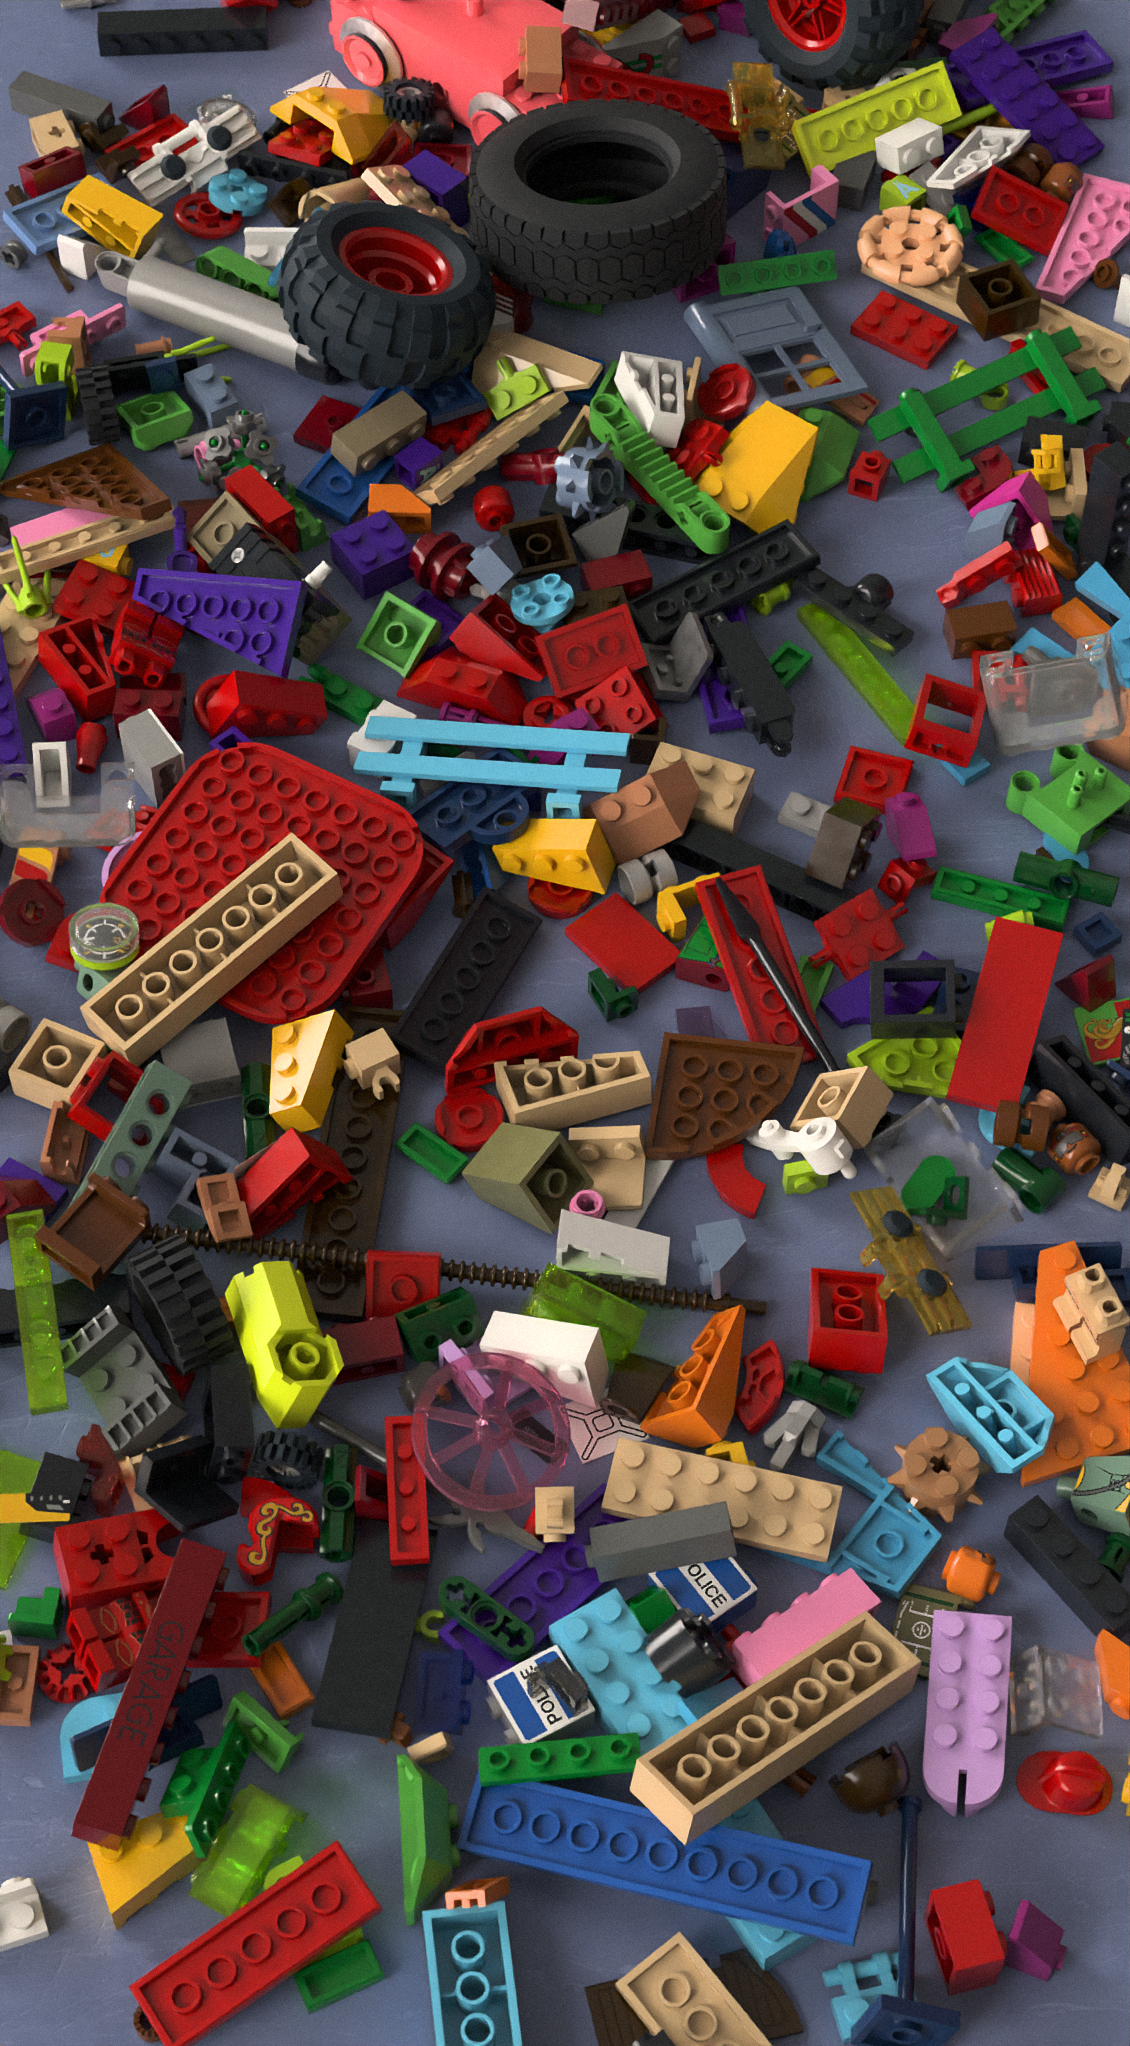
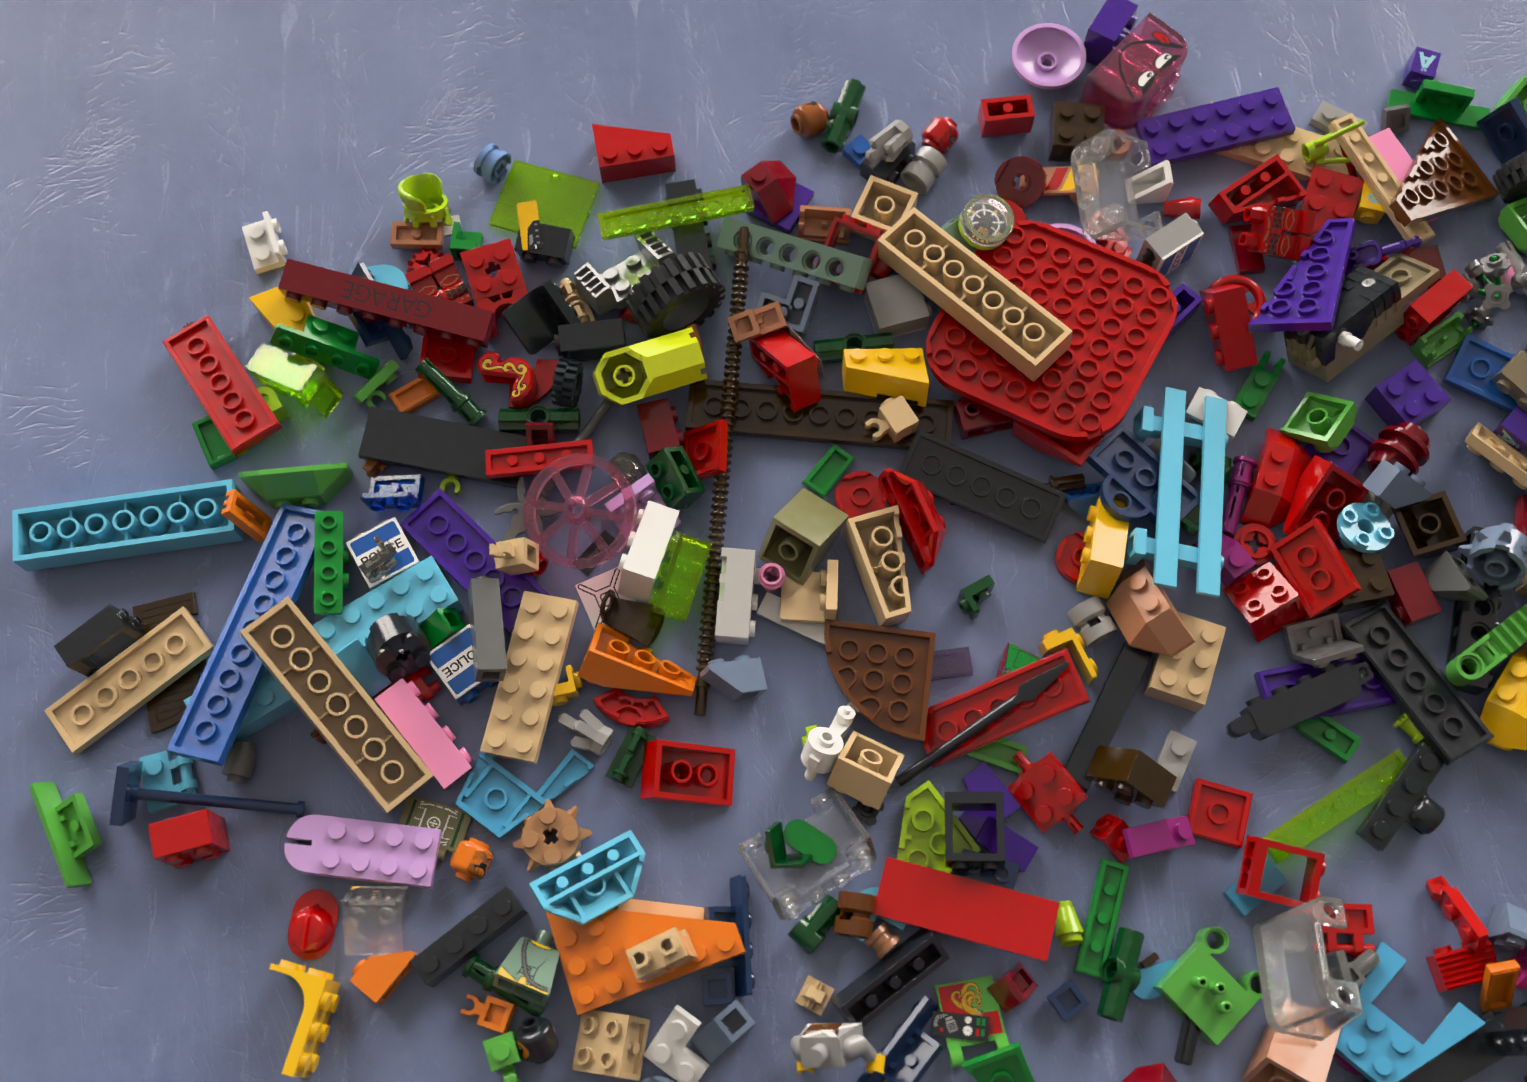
camera: 90 degrees right, 15 degrees up
(53, 715) = (1210, 178): magenta slope -> none
(95, 1231) = (728, 236): reddish brown panel -> none
(102, 1463) = (556, 273): clear red slope -> none
(165, 704) = (1217, 245): dark red brick -> none
(402, 506) = (1461, 413): orange slope -> none
(432, 1749) = (355, 486): tan tile -> none
(458, 1609) = (443, 505): dark green beam -> none
(493, 508) = (1475, 492): red head -> none
(623, 944) = (1030, 607): red tile -> none
(646, 743) = (1235, 624): dark brown panel -> none
(734, 1181) = (810, 692): red tile -> none
(873, 1781) = (312, 779): dark brown cylinder -> none
(907, 1262) = (725, 813): clear yellow piece -> none
(979, 628) = (1397, 913): reddish brown brick -> none
(1034, 1943) = (184, 889): magenta slope -> none
(1074, 1148) = (845, 963): dark orange head -> none
(1079, 620) = (1423, 1012): orange tile -> none

